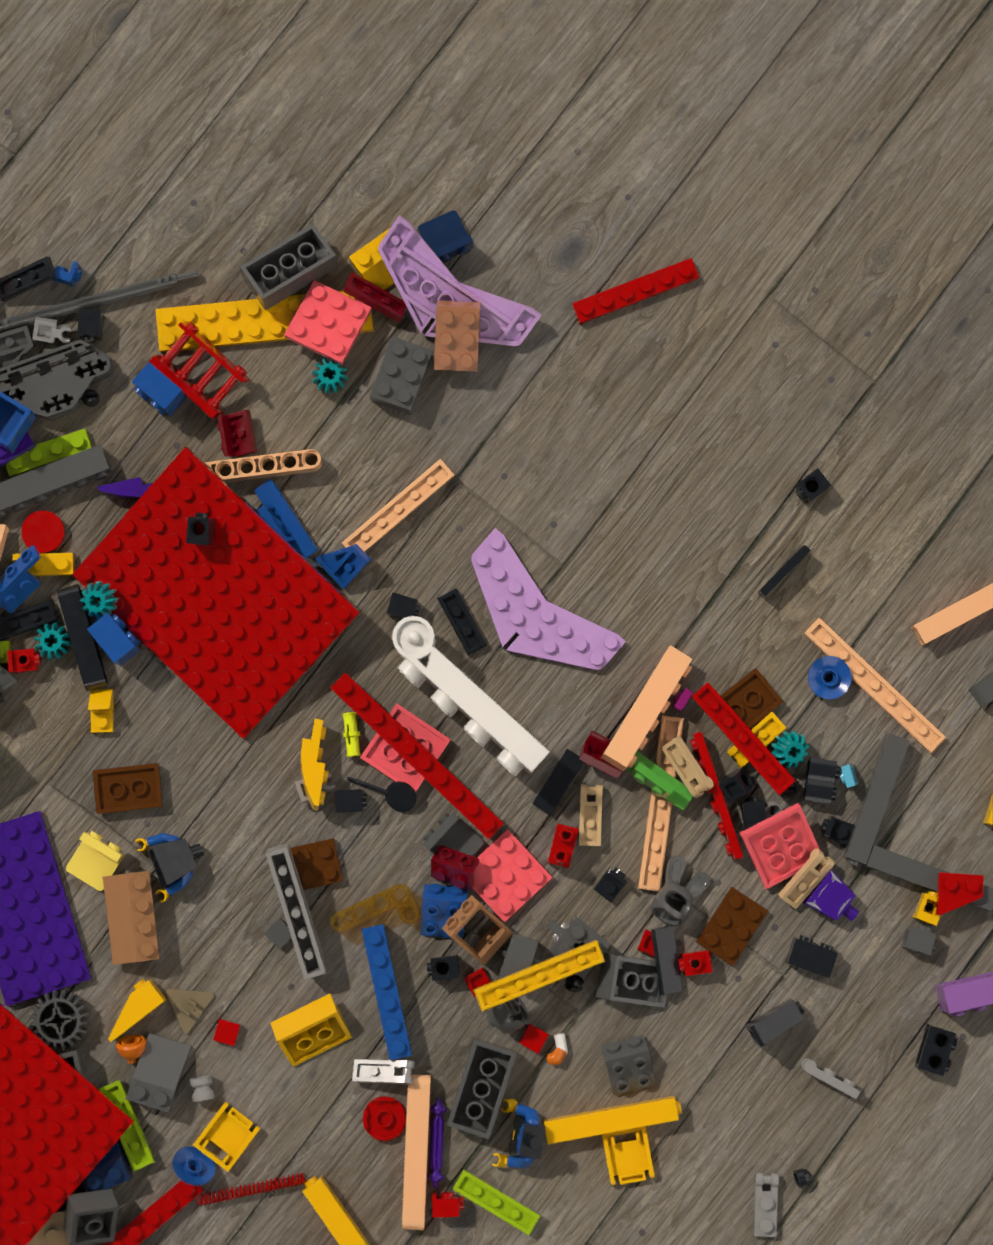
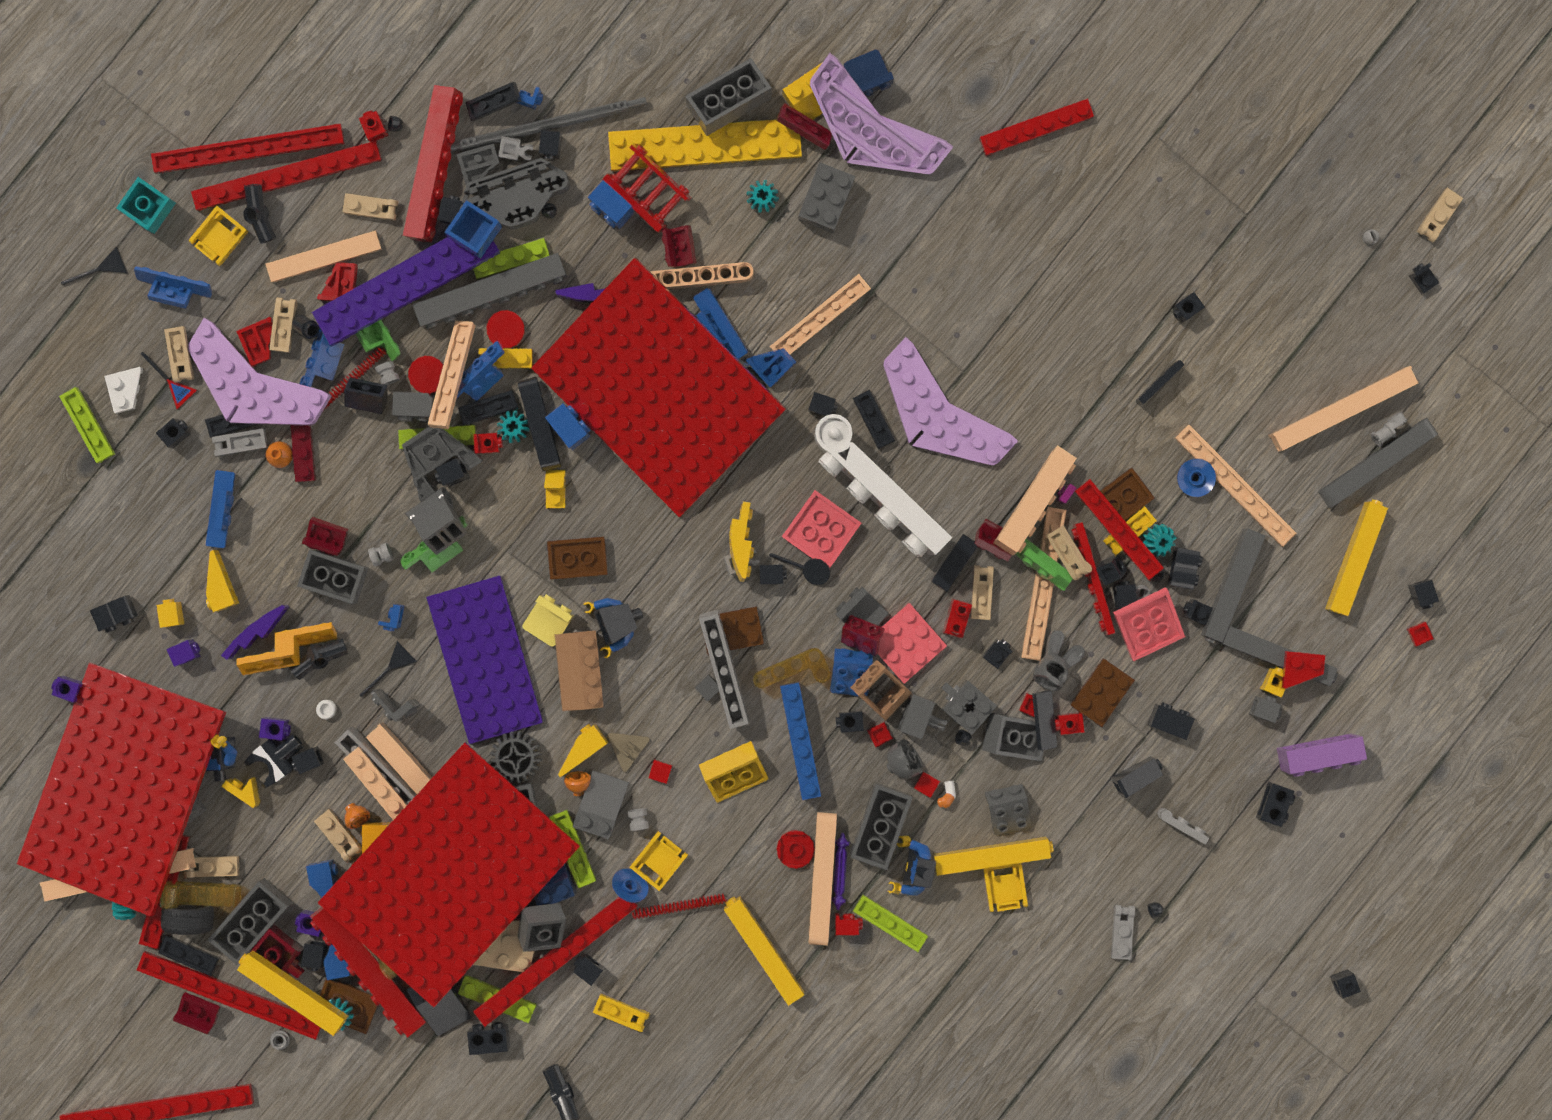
camera: 10 degrees right, 5 degrees up
(91, 597) = (548, 391): teal gear -> none
(193, 536) = (641, 338): black brick -> none
(328, 322) = (762, 148): coral plate -> none
(351, 734) = (774, 516): neon yellow pin -> none
(382, 1071) = (795, 809): plate -> none
(416, 755) = (831, 535): red plate -> none
(457, 335) = (877, 163): nougat brick -> none
(539, 975) = (935, 731): yellow tile -> none
(806, 878) = (1169, 653): tan plate -> none
(832, 898) = (1191, 670): dark purple torso -> none
(848, 775) = (1209, 564): medium azure plate -> none

